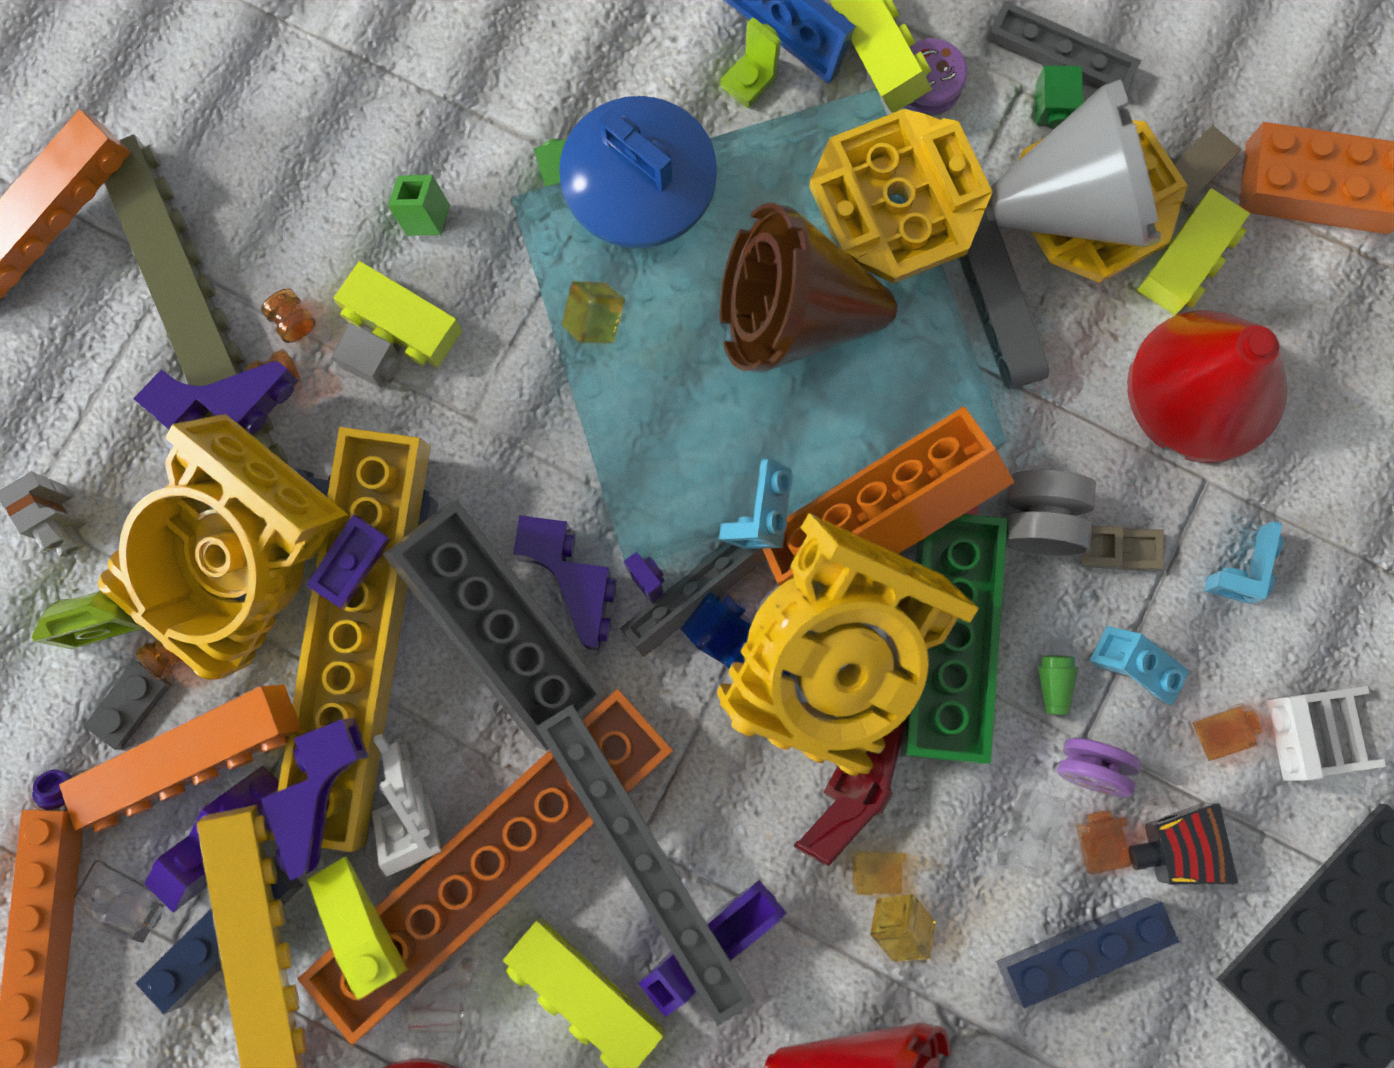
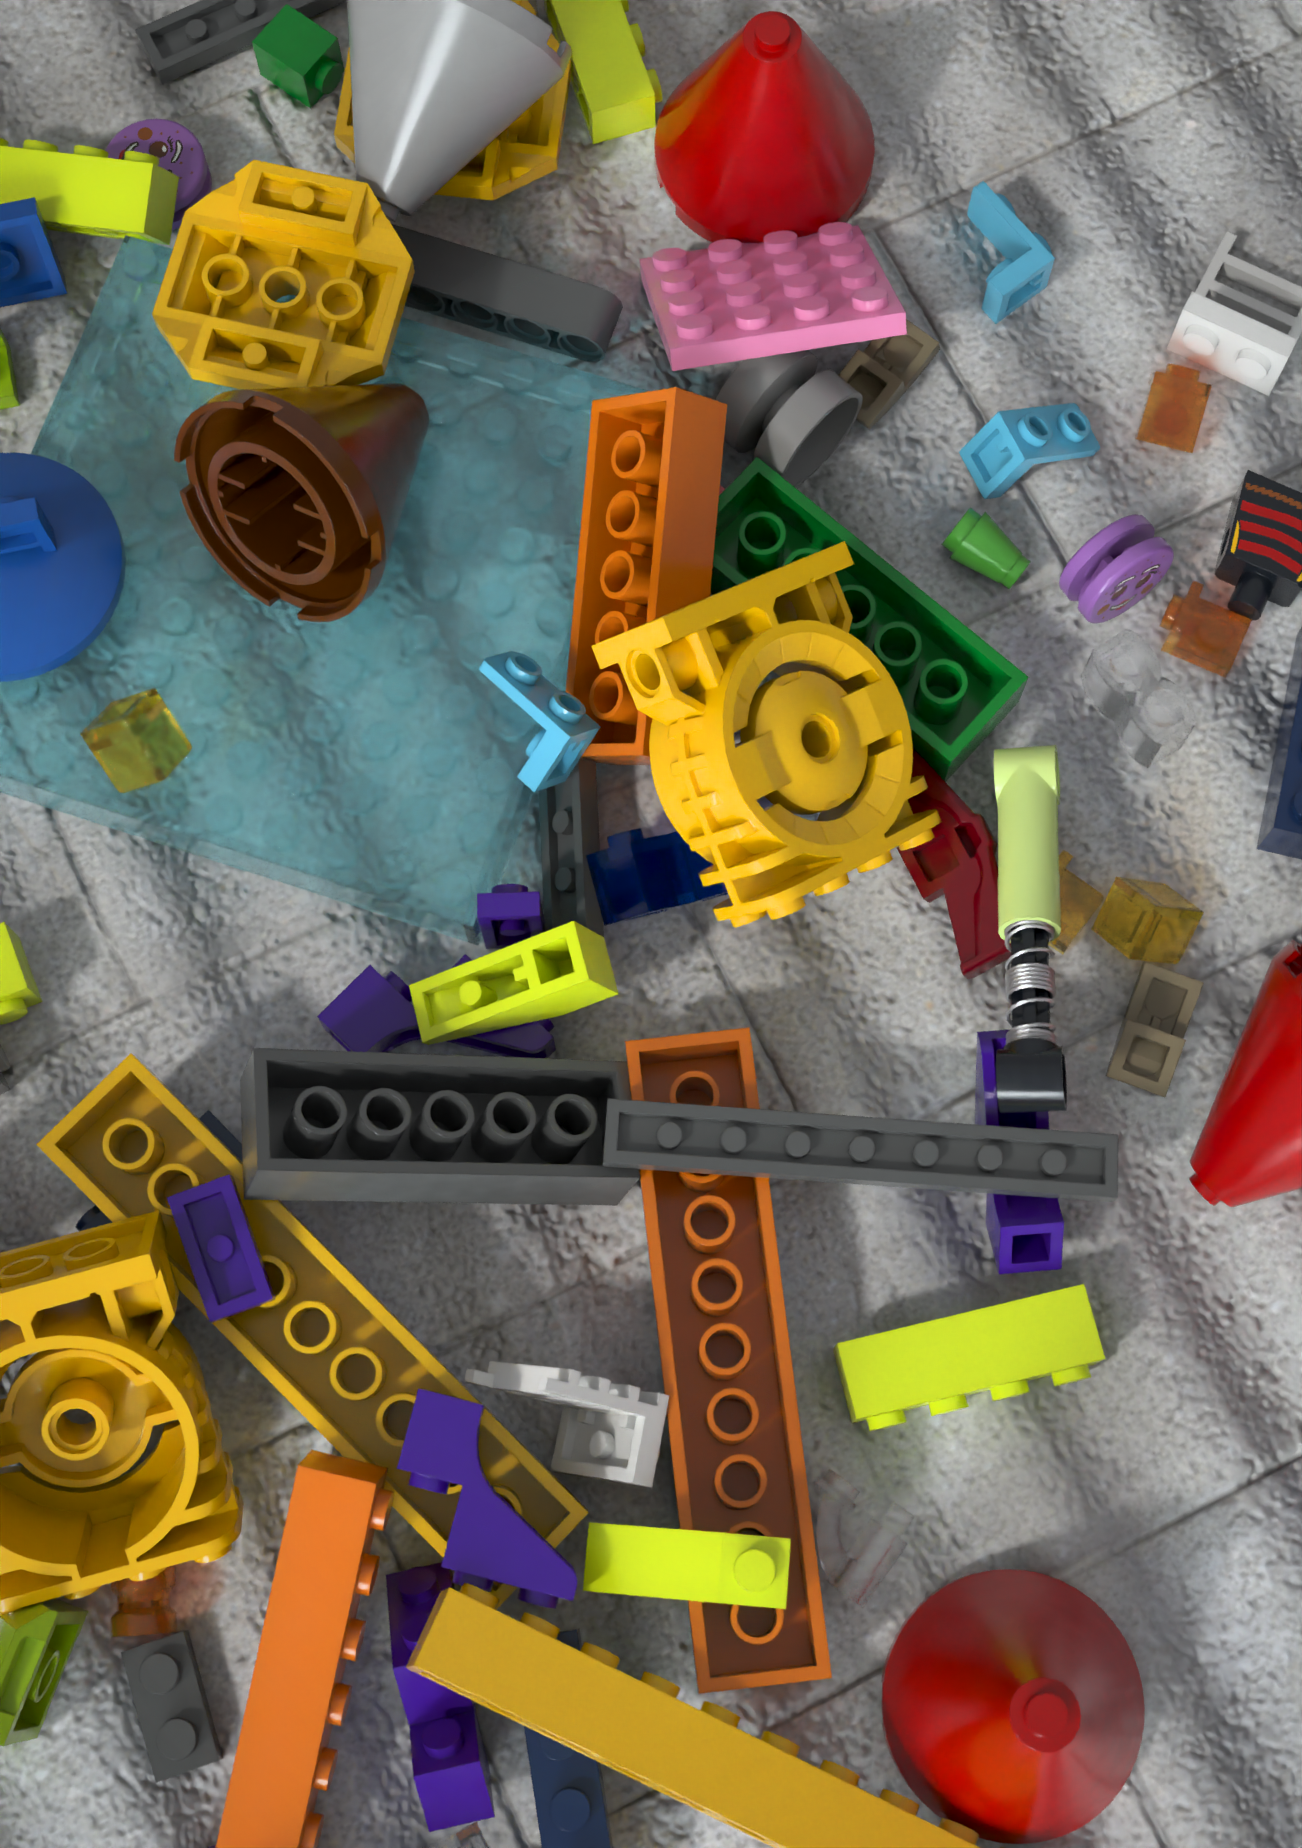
camera: 55 degrees left, 5 degrees down
(605, 608) = (516, 985): none -> neon yellow slope
(843, 974) = (1154, 1029): none -> dark tan slope
(922, 810) = (1029, 917): none -> piece
(1110, 457) = (769, 296): none -> bright pink plate

